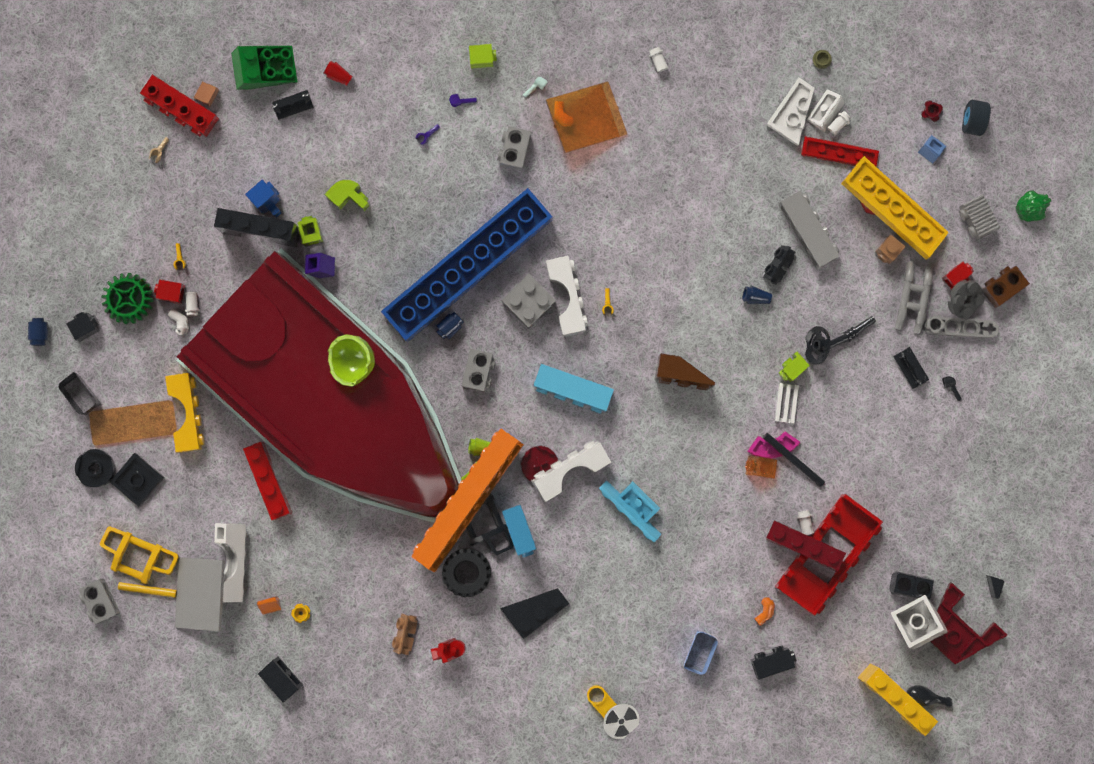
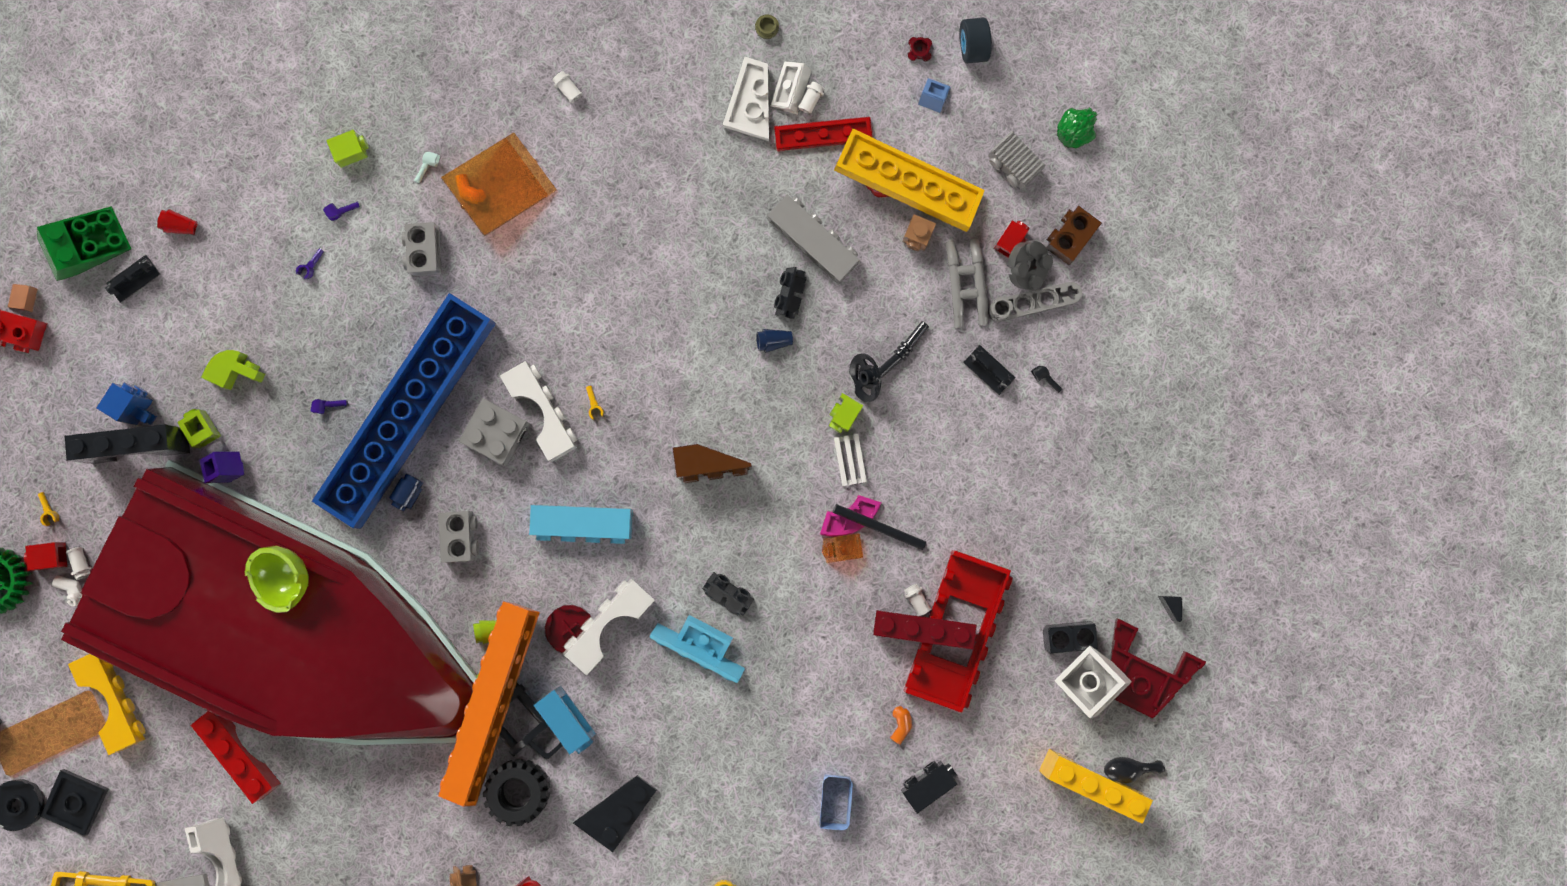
camera: 15 degrees left, 0 degrees up
(403, 241) = (318, 406): none -> dark purple hand
(671, 481) = (738, 598): none -> black hinge

